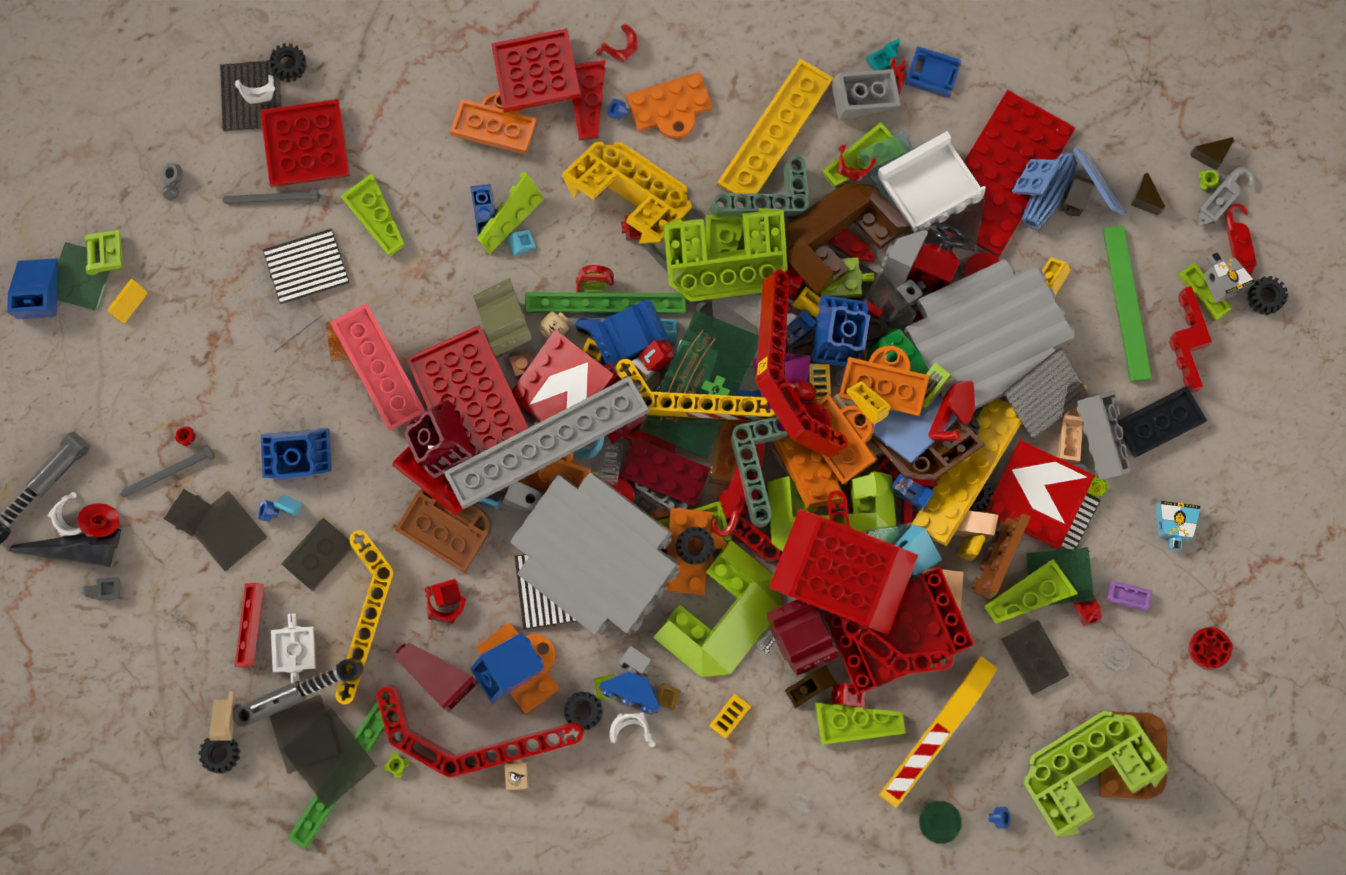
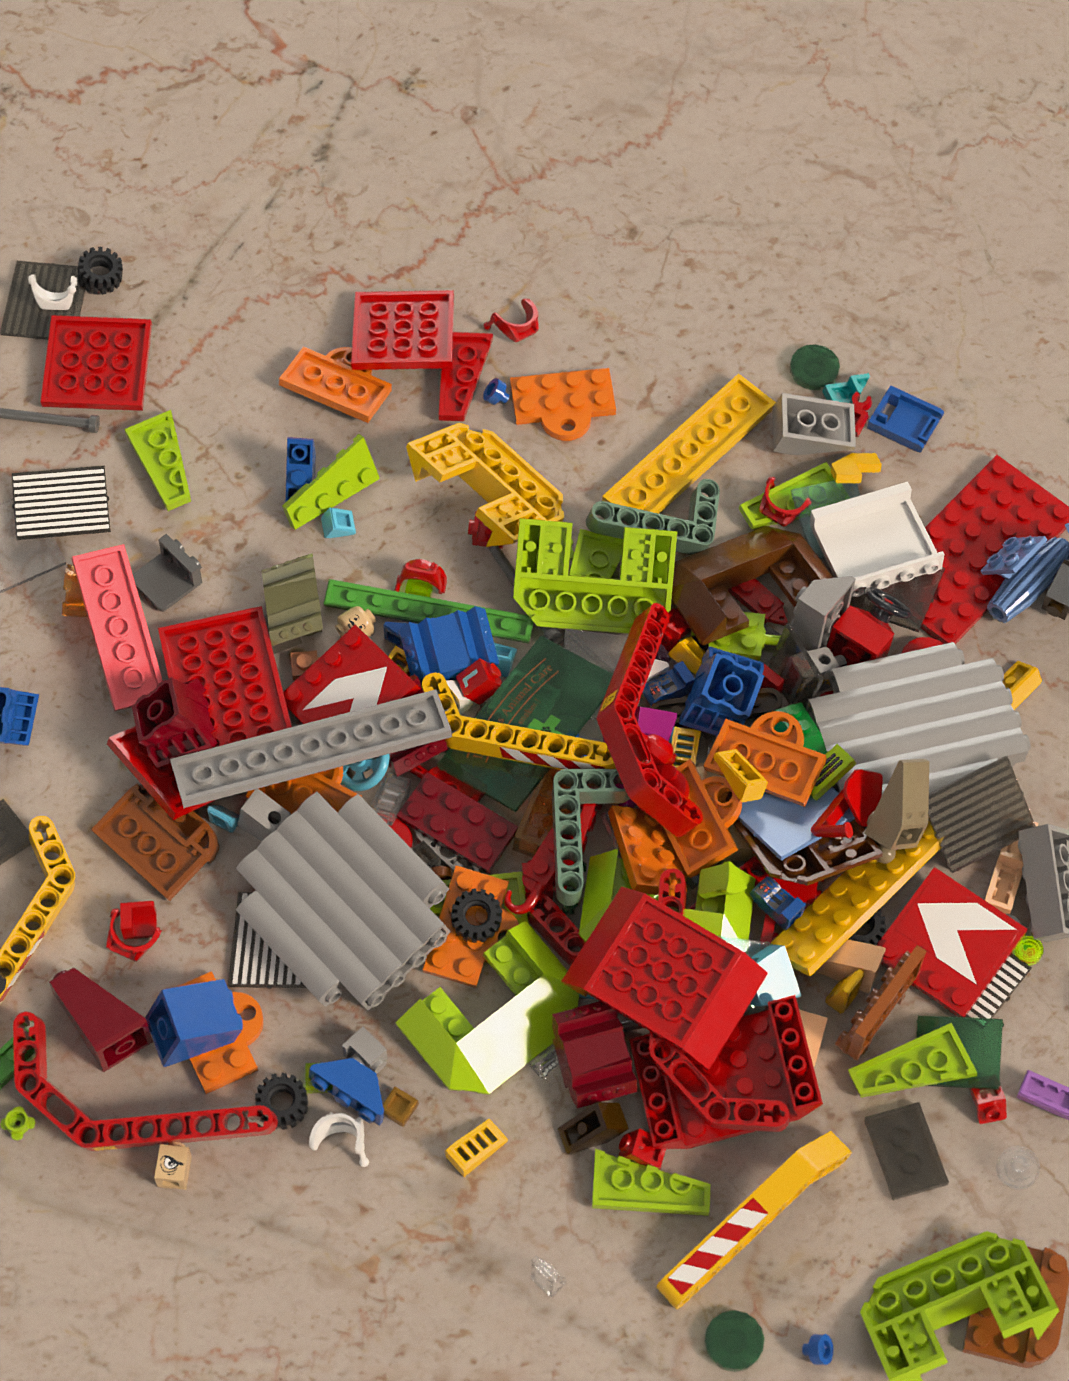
camera: 10 degrees right, 15 degrees down
(402, 312) = (168, 575): none -> dark grey bracket
(856, 40) = (814, 366): none -> clear green tile
(898, 127) = (850, 468): none -> yellow tile
(993, 407) = (901, 810): none -> dark tan slope

